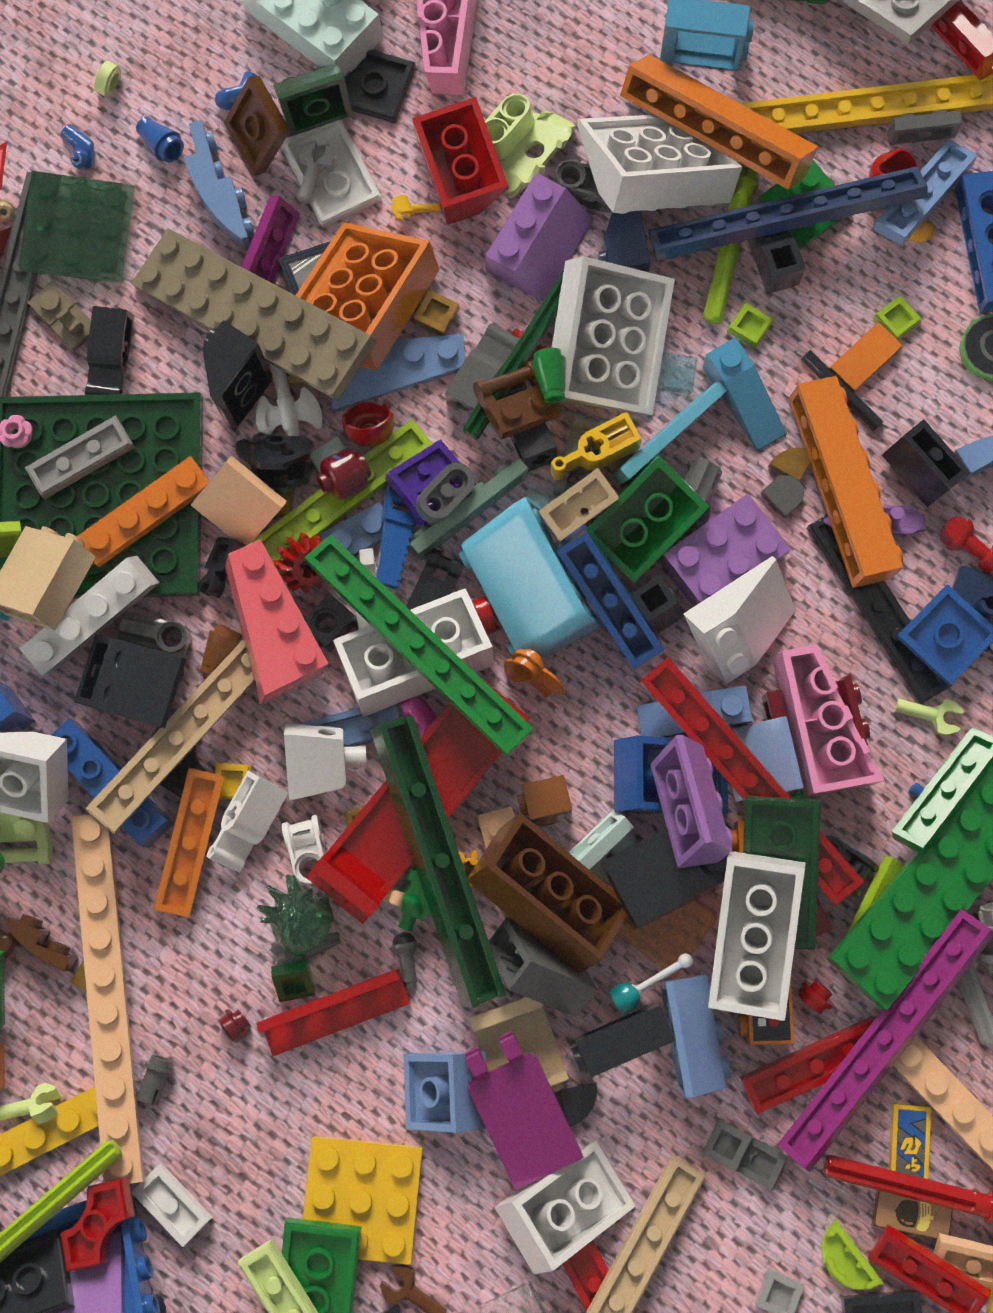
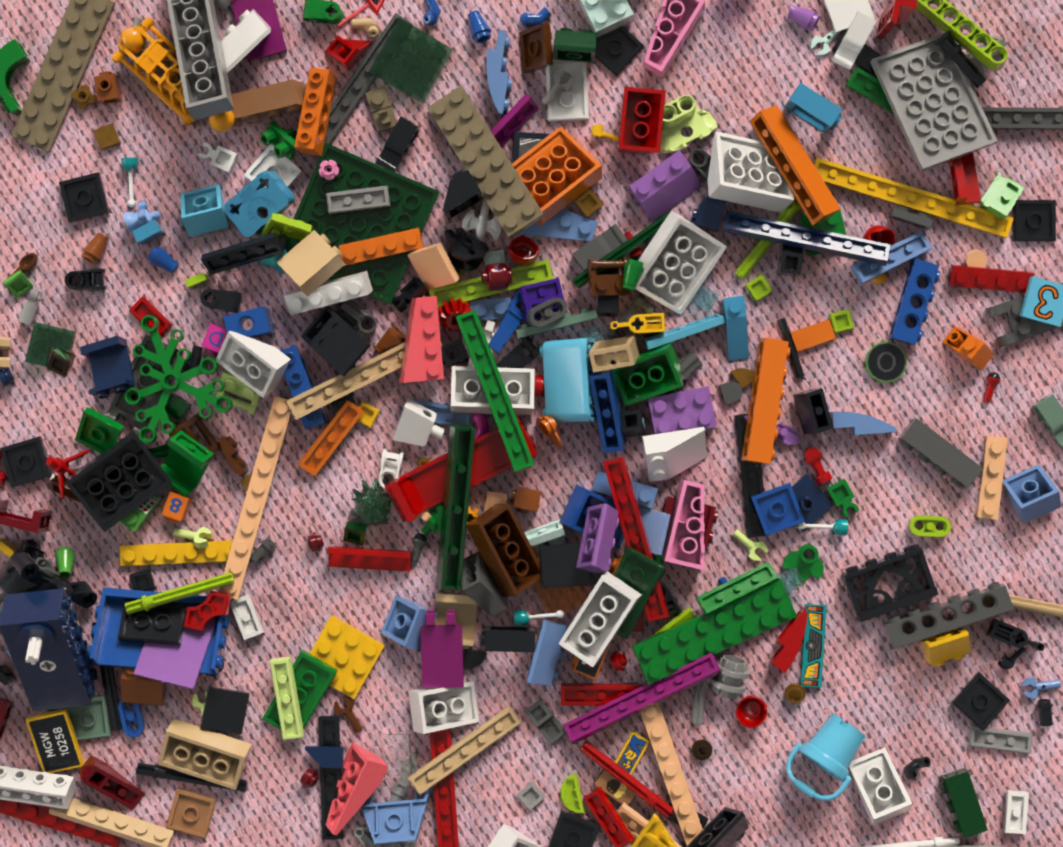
camera: 20 degrees right, 10 degrees up
(246, 820) = (366, 439): white piece -> none

